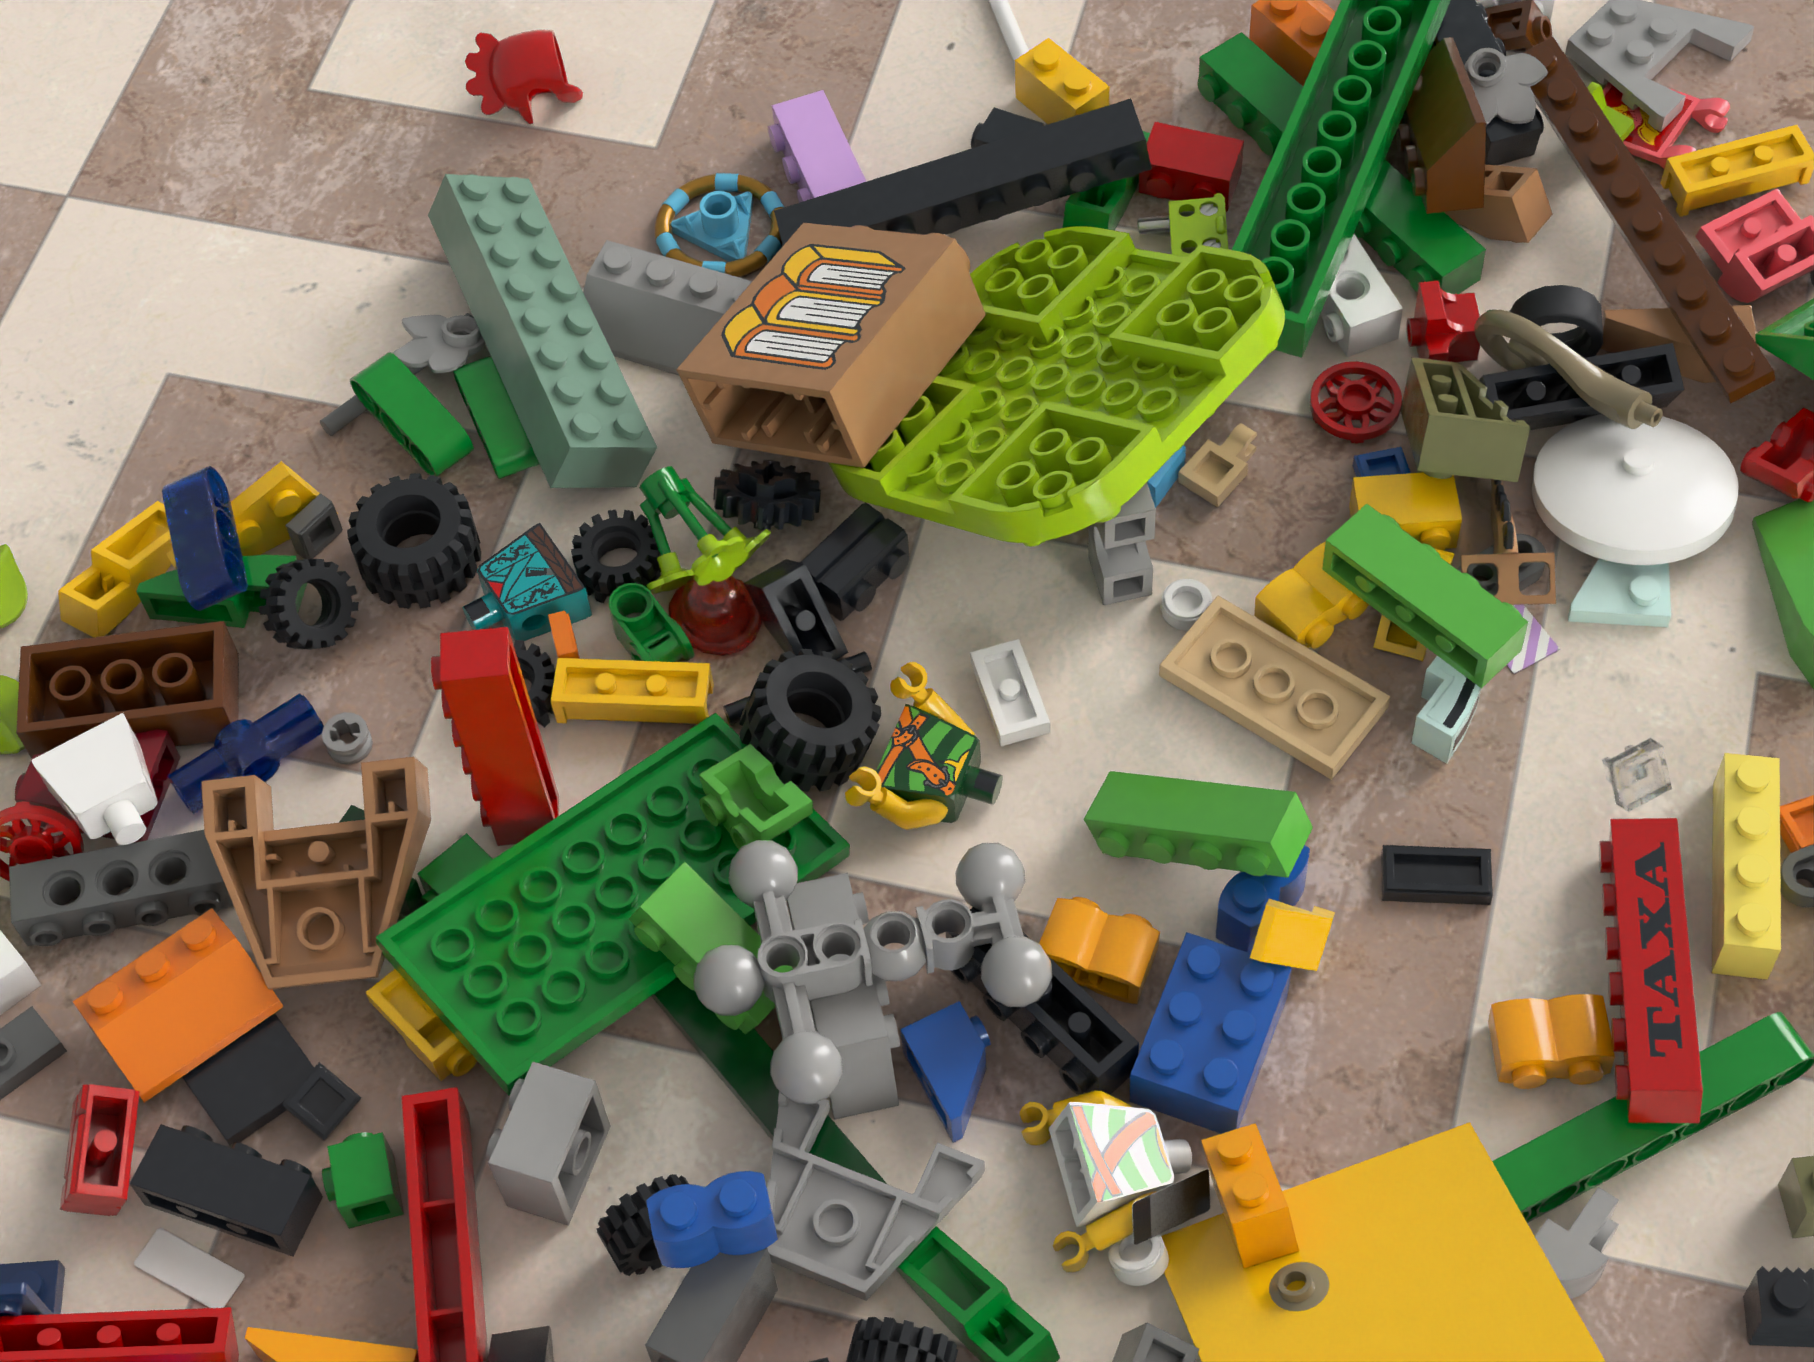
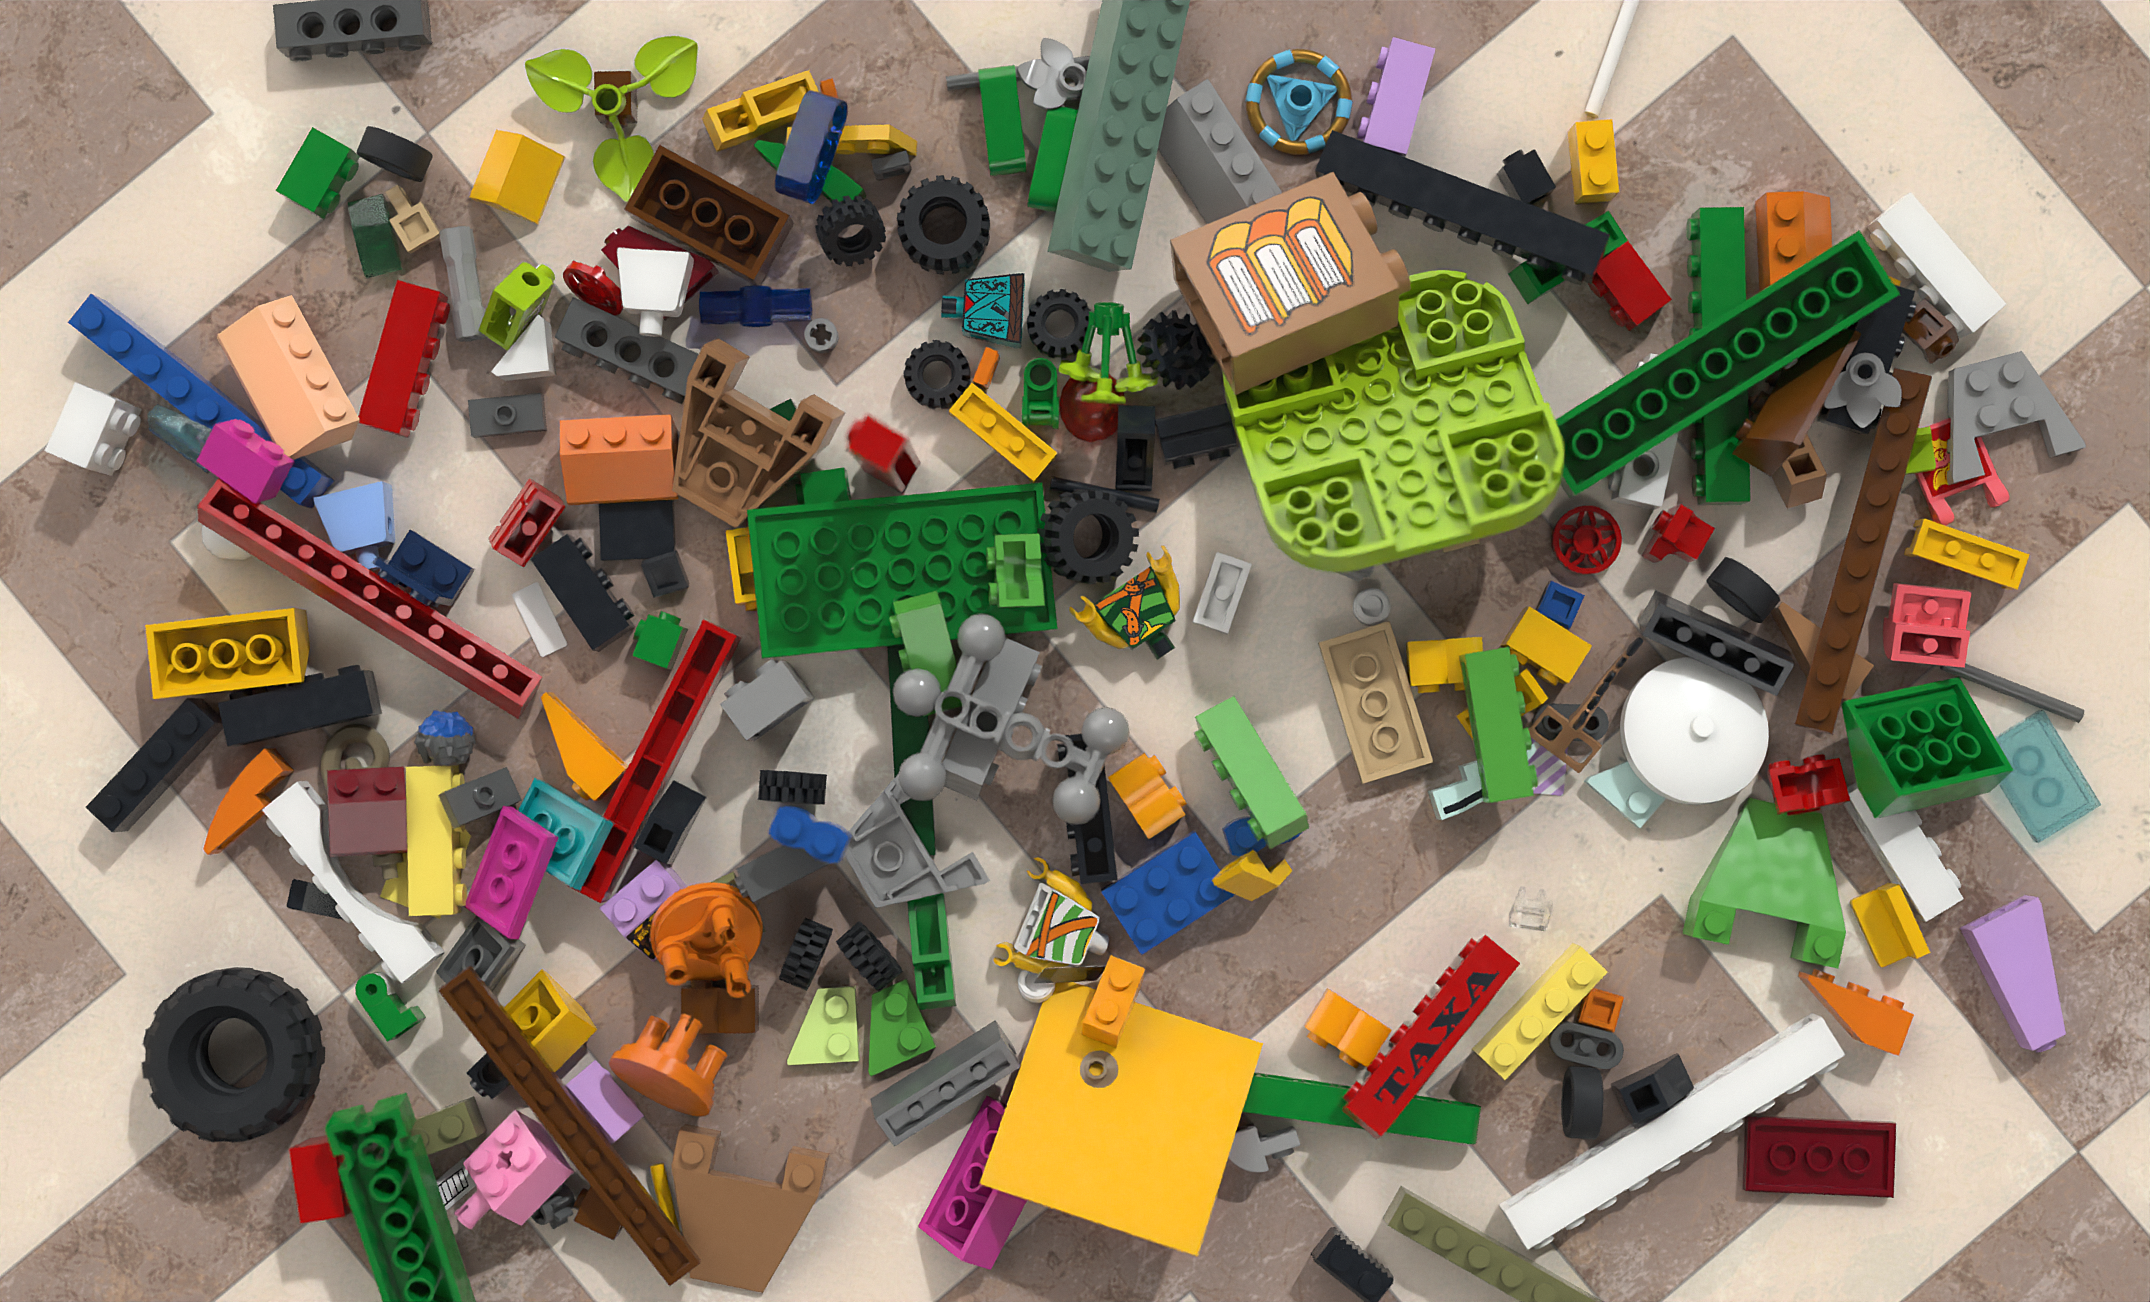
camera: 30 degrees right, 30 degrees up
(948, 1062) = (1016, 803): blue slope -> none
(1191, 224) = (1588, 346): lime piece -> none
(1436, 875) = (1371, 884): black tile -> none
(1457, 427) = (1616, 618): olive wedge -> none
(1535, 346) = (1719, 661): dark tan plant -> none

